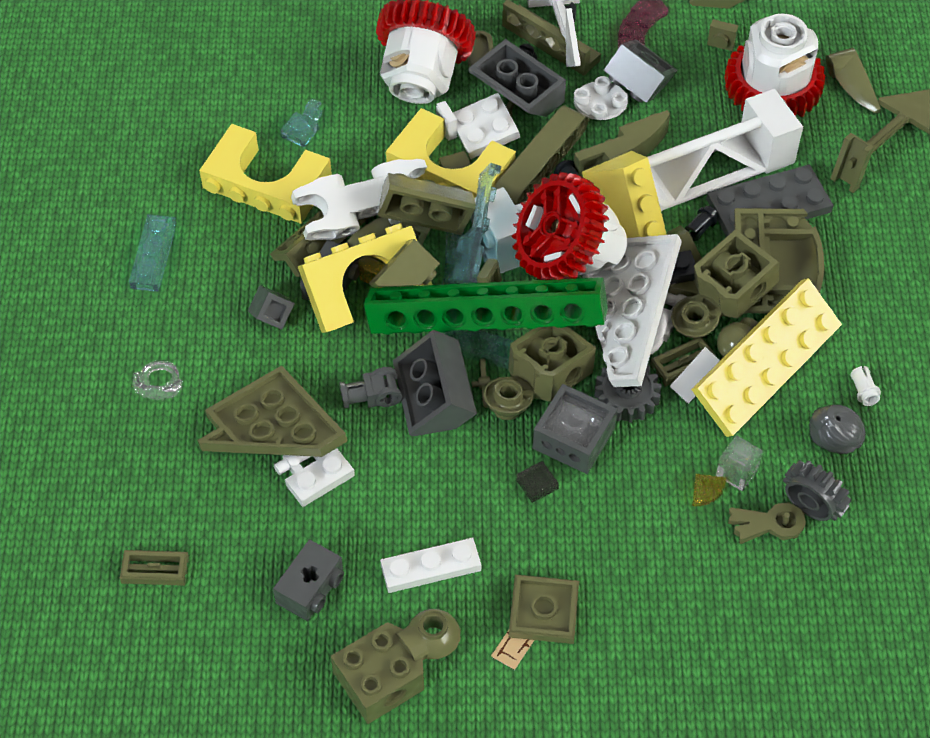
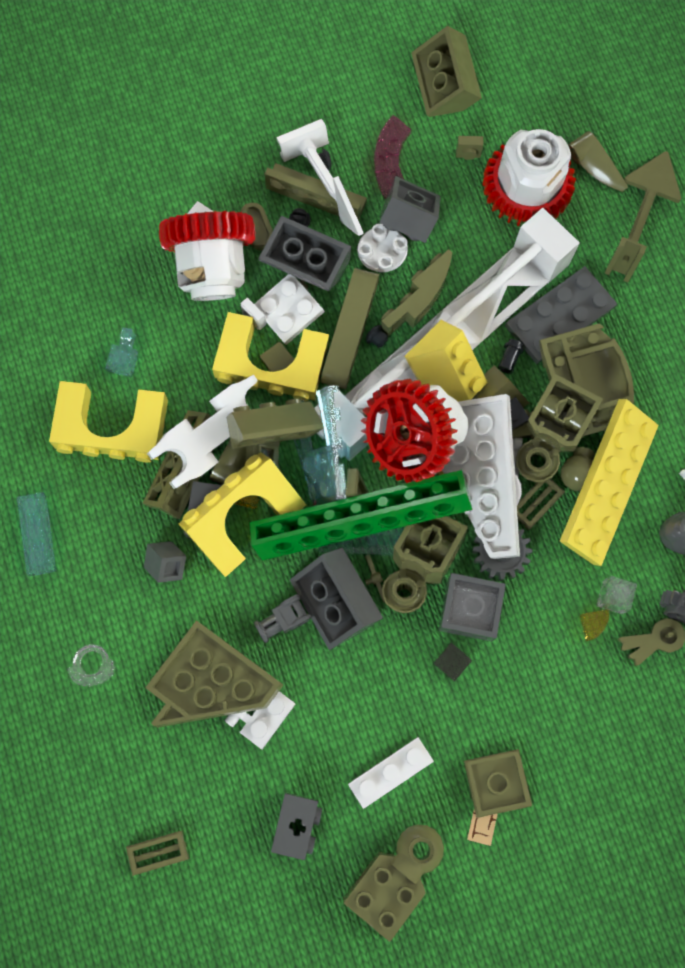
camera: 20 degrees left, 20 degrees up
(408, 267) = (278, 502): olive slope -> none
(693, 374) = (553, 514): white sticker -> none

